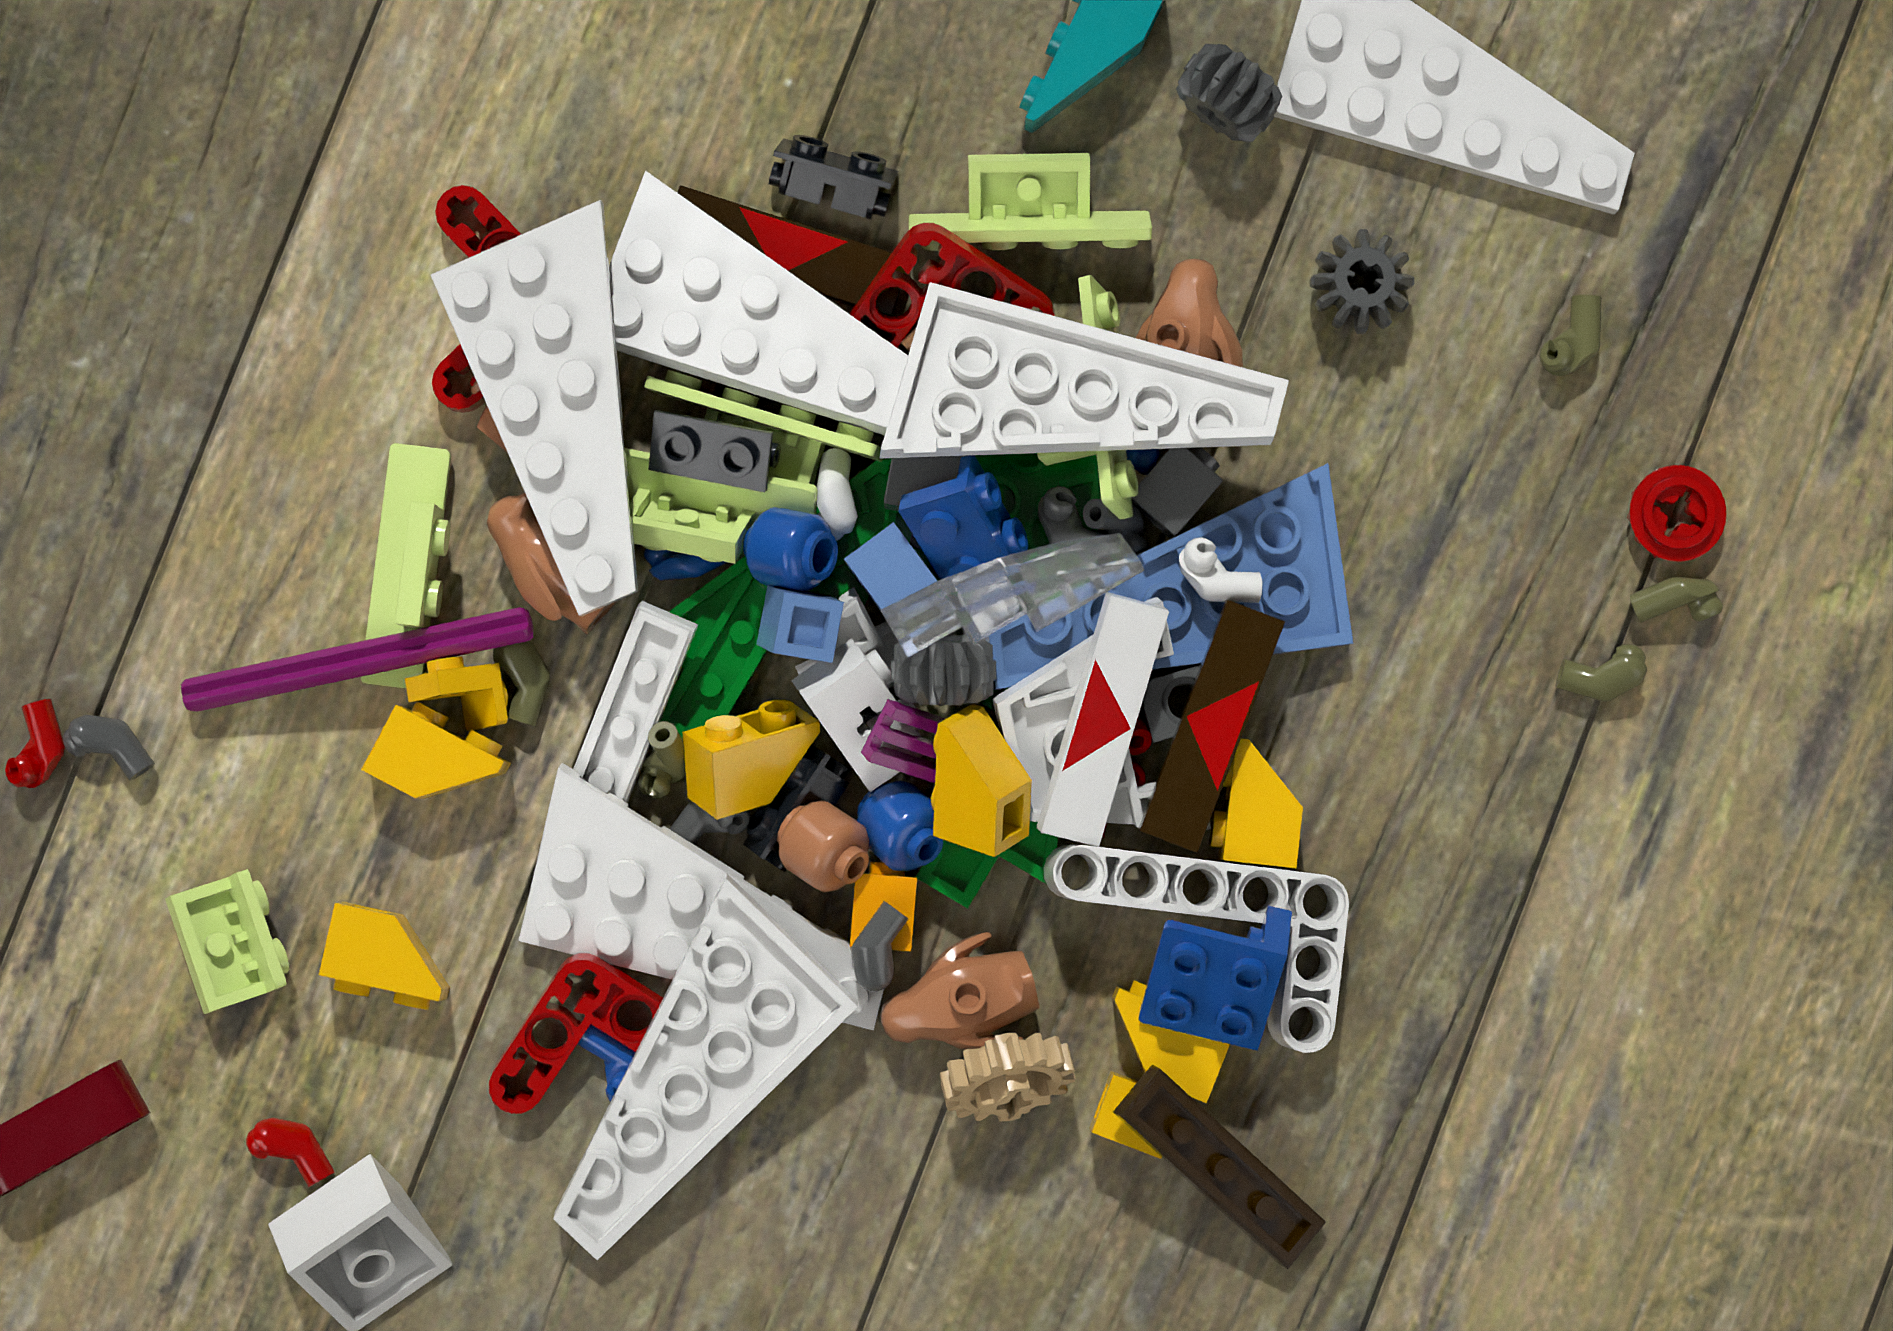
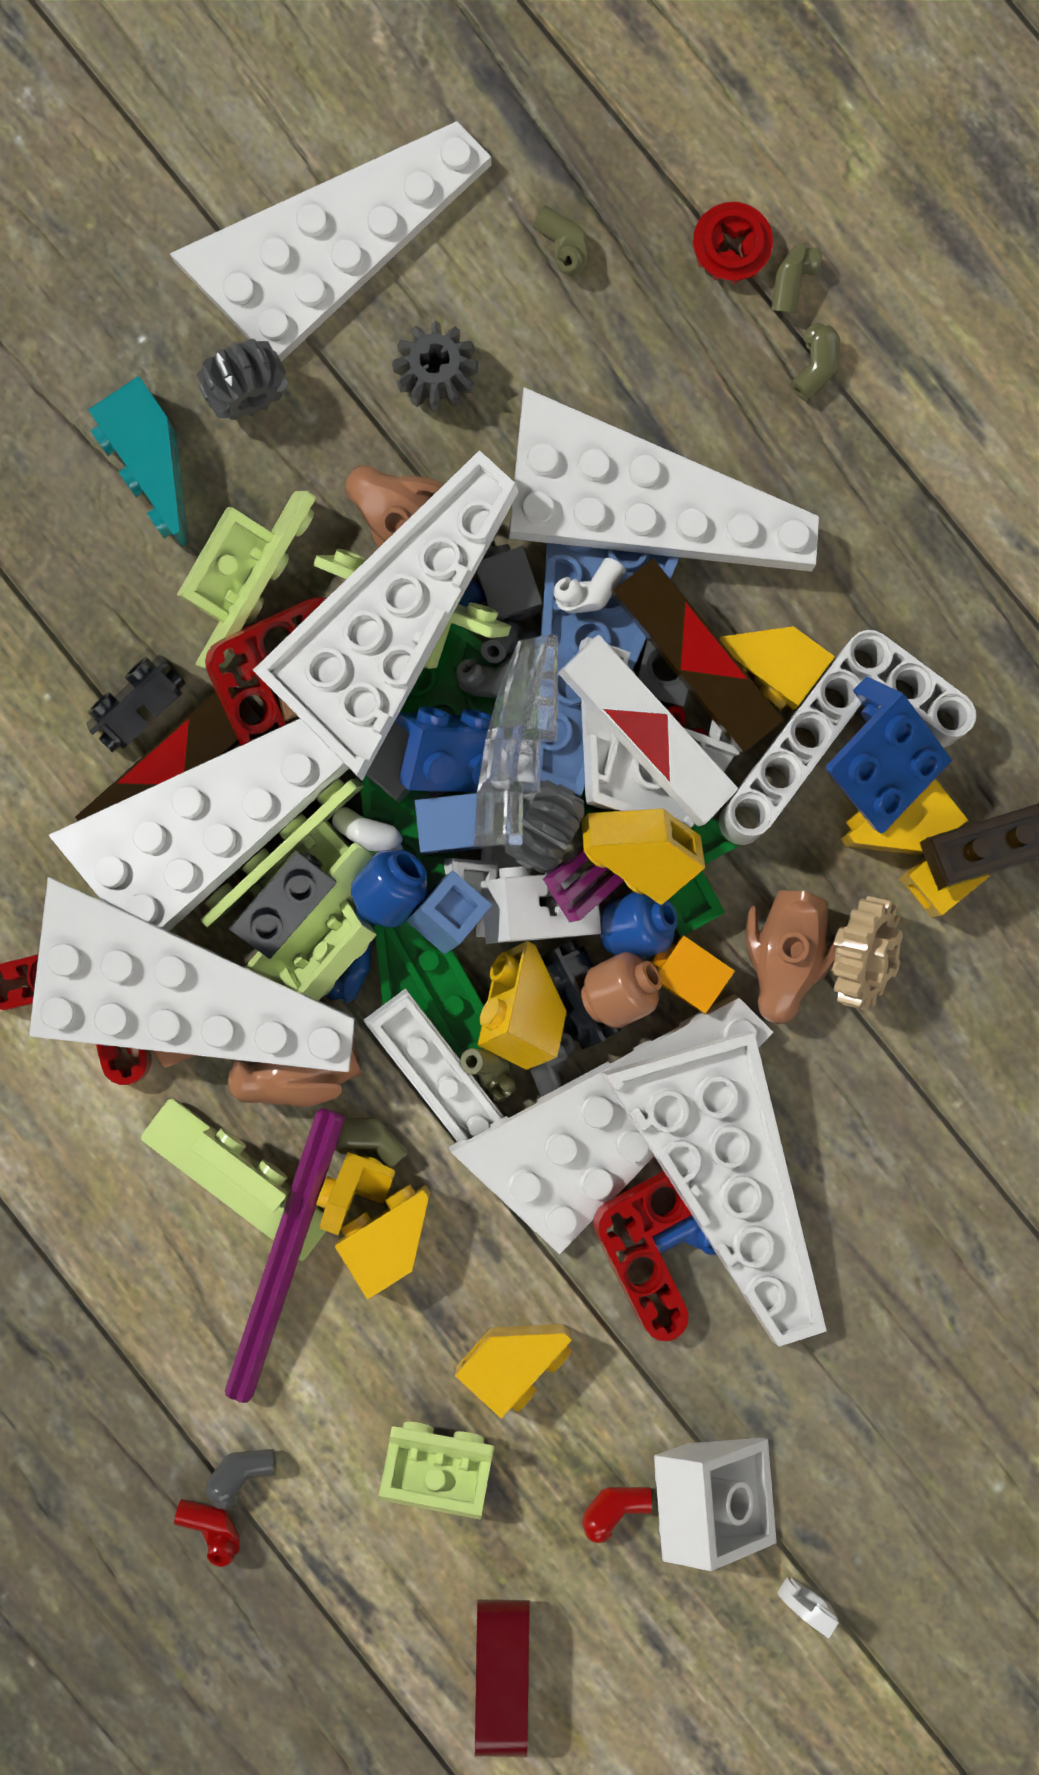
camera: 60 degrees left, 0 degrees up
(873, 949) = (718, 997): dark grey arm -> none
(1340, 548) = (621, 493): none -> white wing

